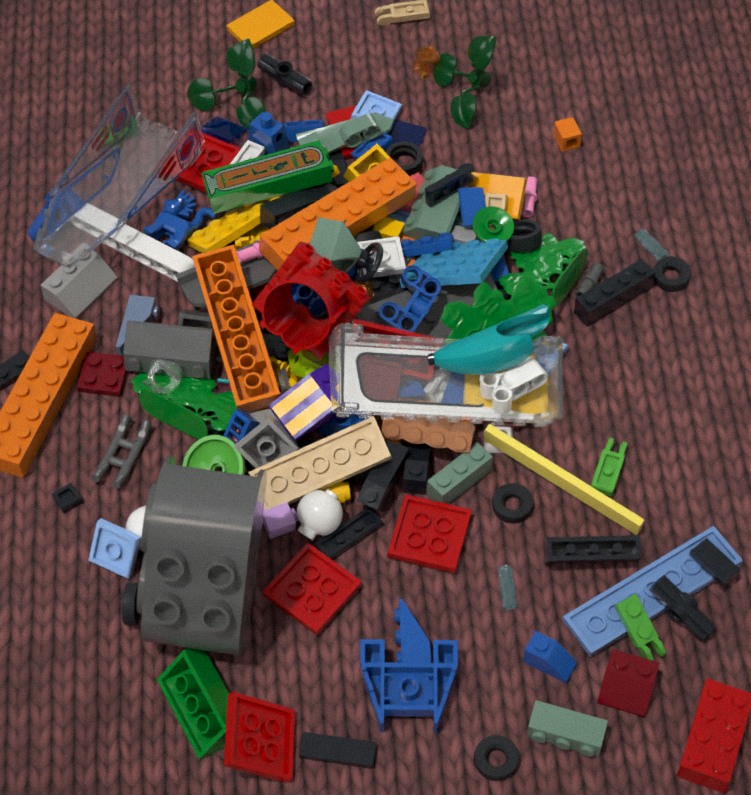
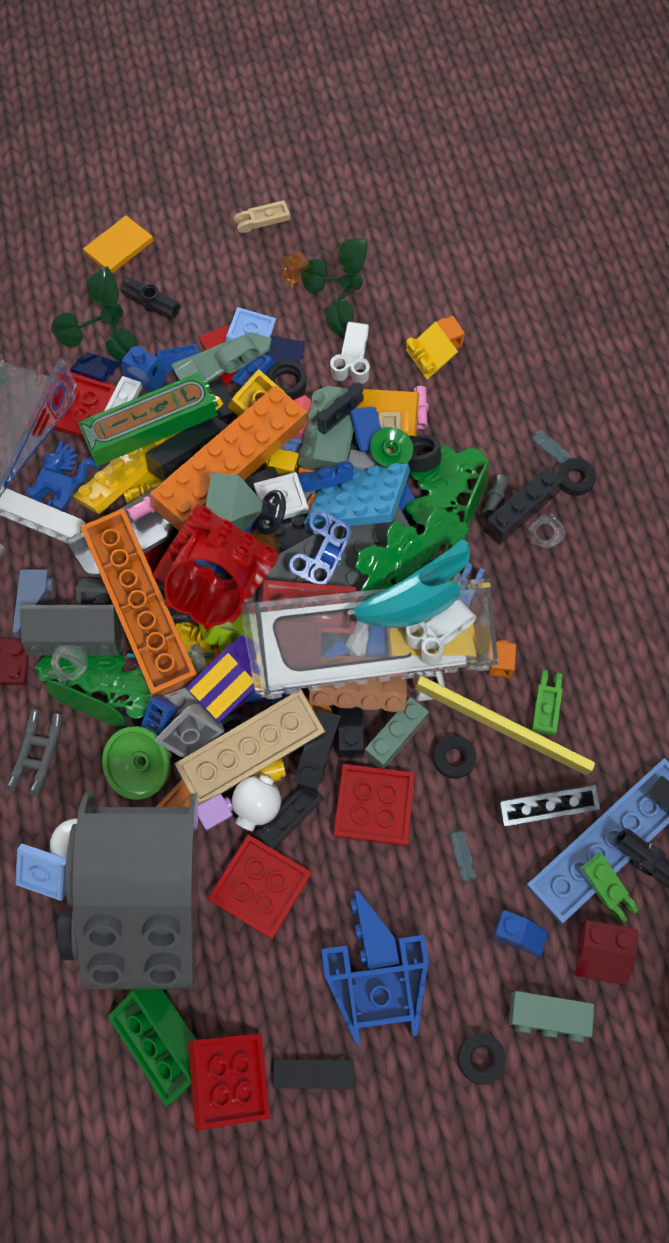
camera: 10 degrees left, 10 degrees up
(470, 143) = (352, 355): none -> white piece
(546, 146) = (431, 350): none -> yellow hinge
(571, 424) = (506, 660): none -> orange brick
(636, 307) = (559, 531): none -> clear piece

